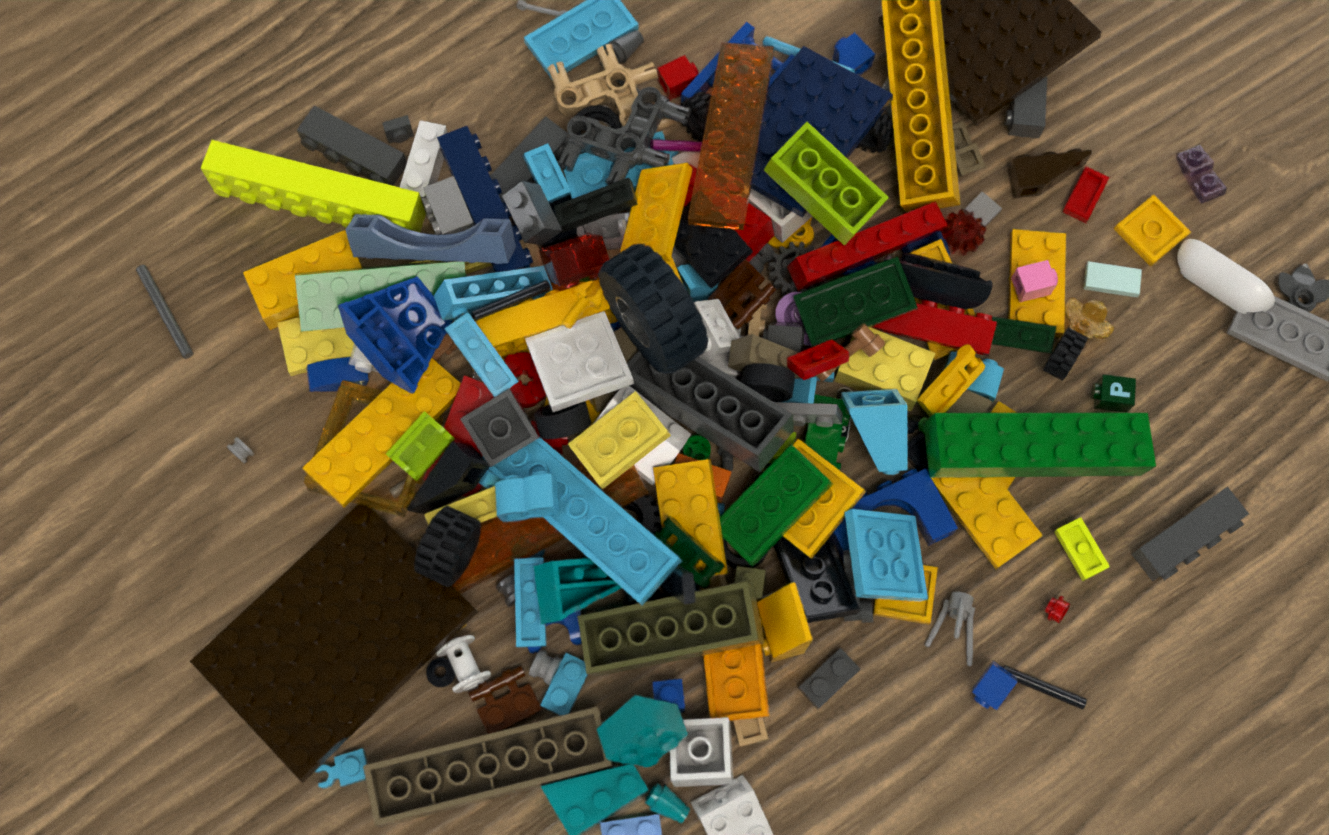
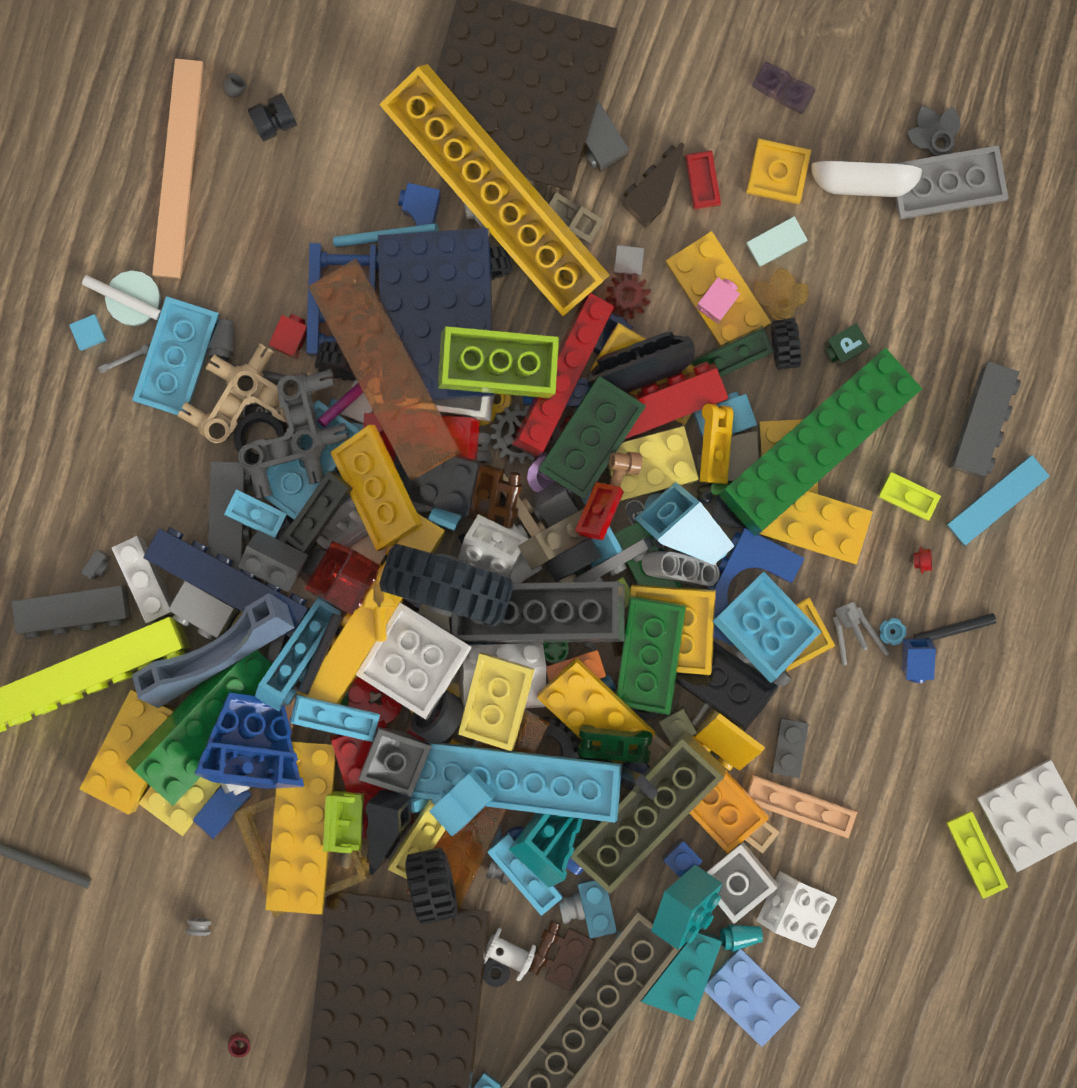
camera: 35 degrees left, 15 degrees up
(185, 564) = (234, 1047): none -> dark red hinge
(803, 736) = (801, 806): none -> light nougat tile
(849, 454) = (680, 568): none -> light grey beam
(995, 645) = (900, 631): none -> medium azure plate
(1156, 609) = (997, 500): none -> medium azure tile

